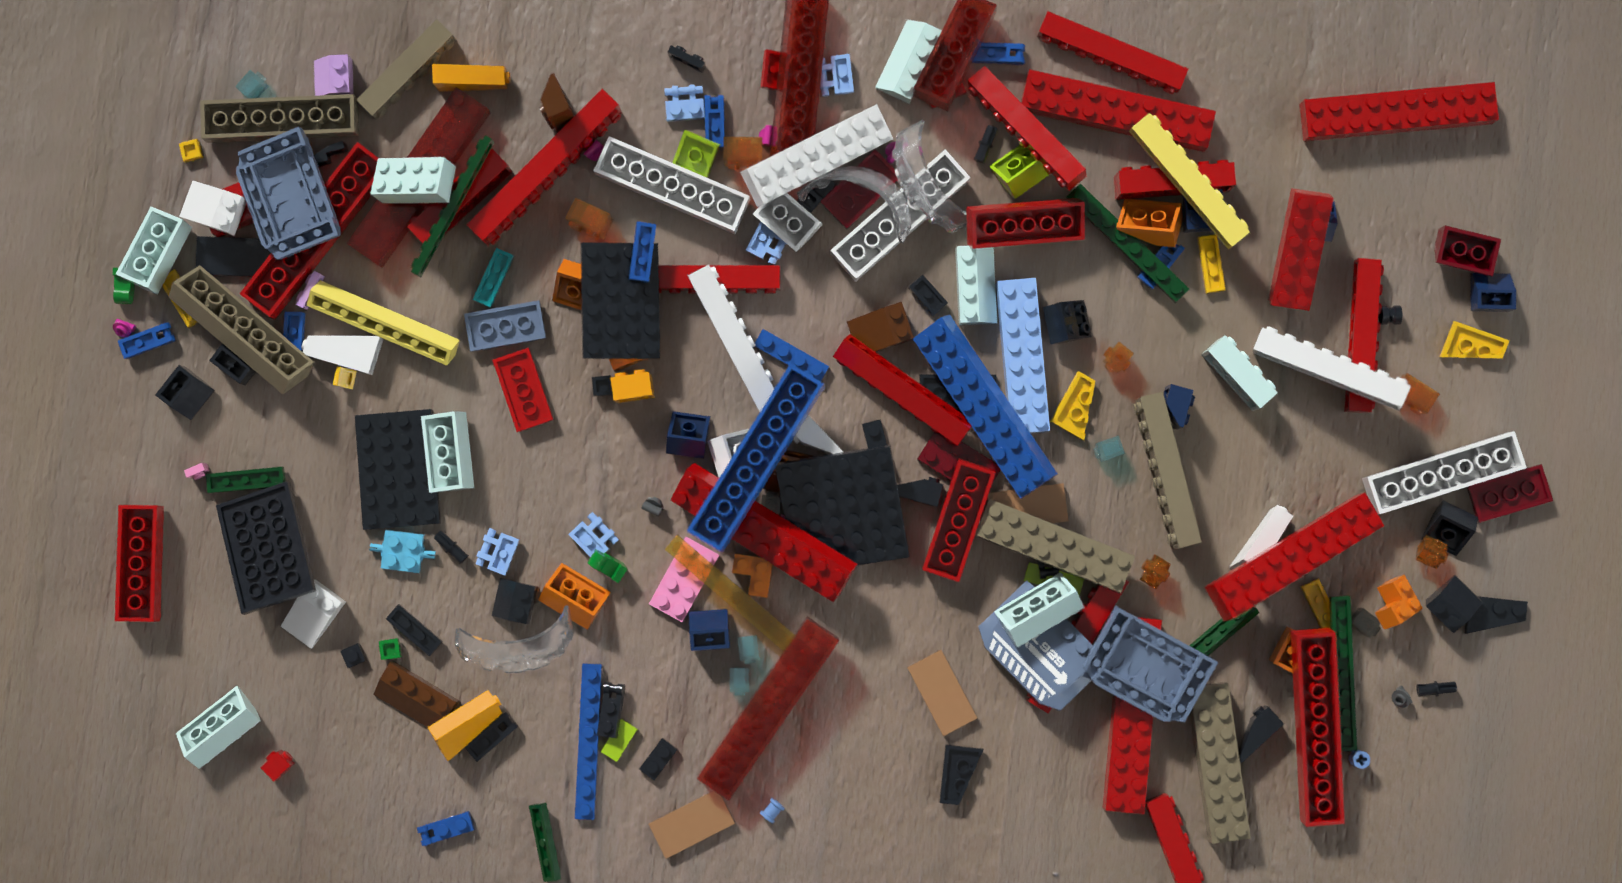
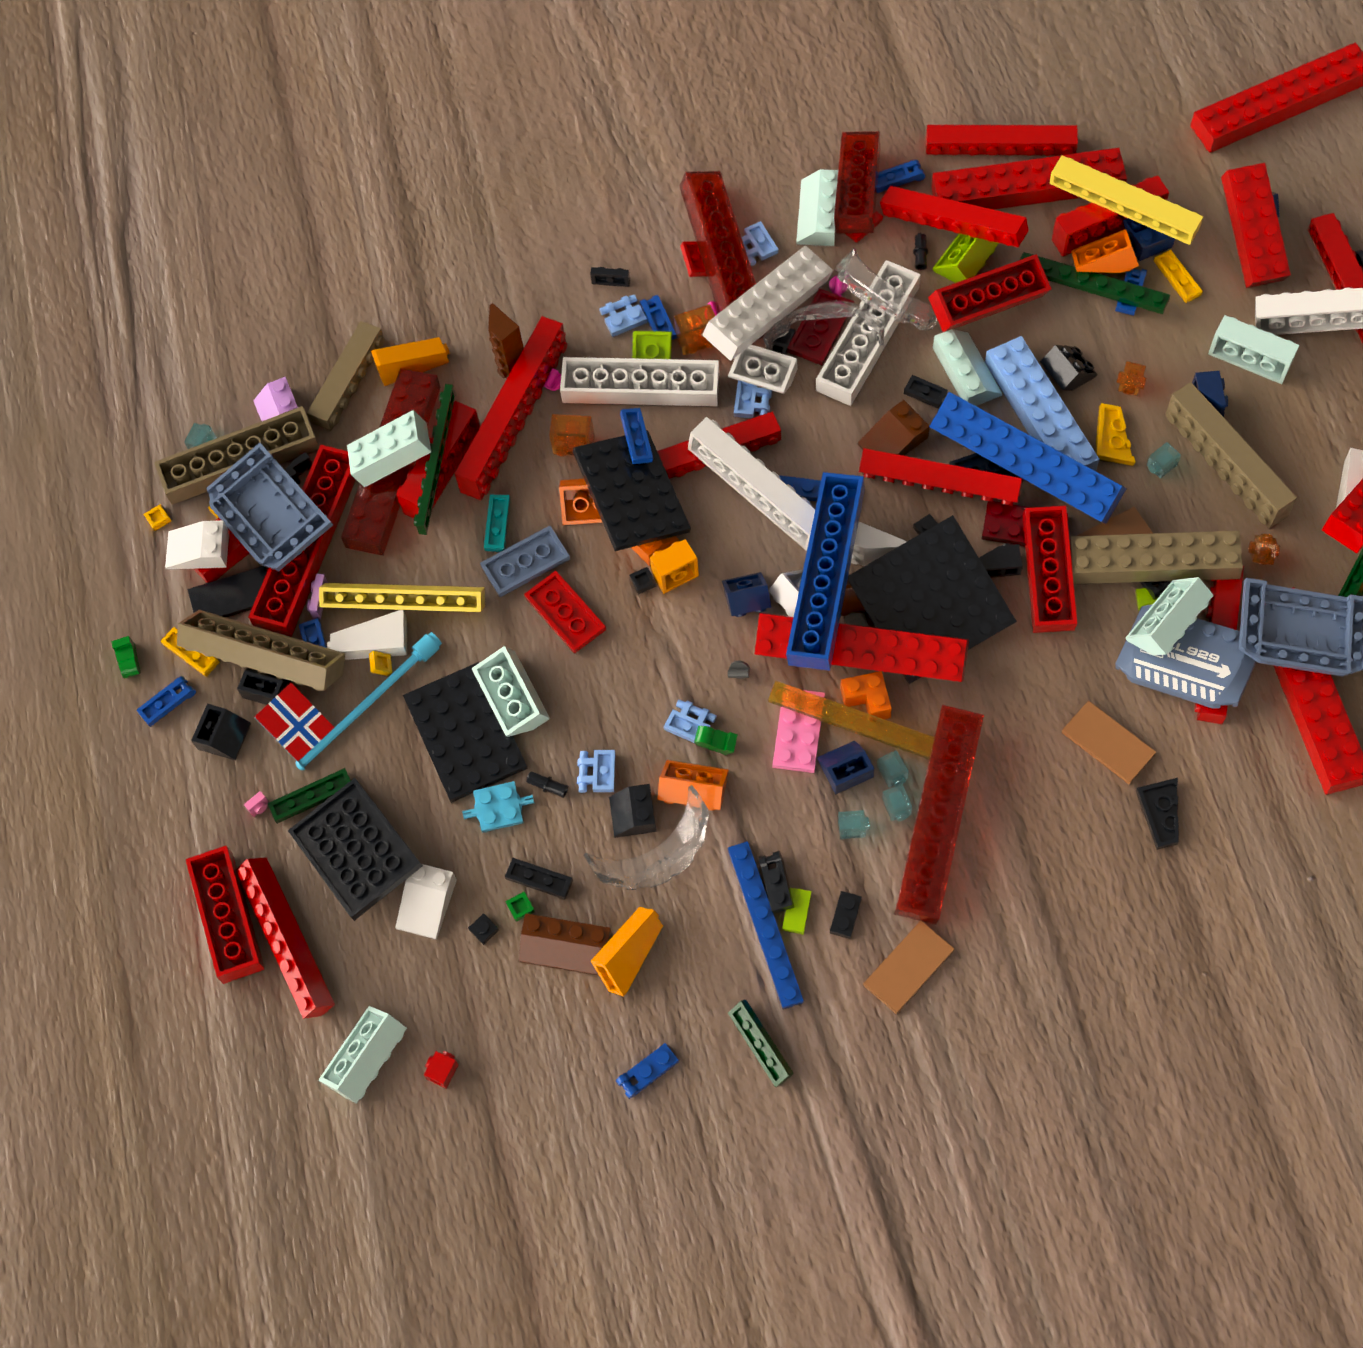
camera: 15 degrees left, 20 degrees down
(123, 328) = (137, 698): dark pink plate -> none
(154, 250) = (149, 611): light aqua slope -> none
(183, 602) = (285, 937): none -> red brick
(258, 418) = (305, 730): none -> flag
(490, 737) = (660, 957): black plate -> none
(694, 684) = (852, 824): none -> clear light blue brick
(772, 810) = (987, 920): medium blue bush -> none

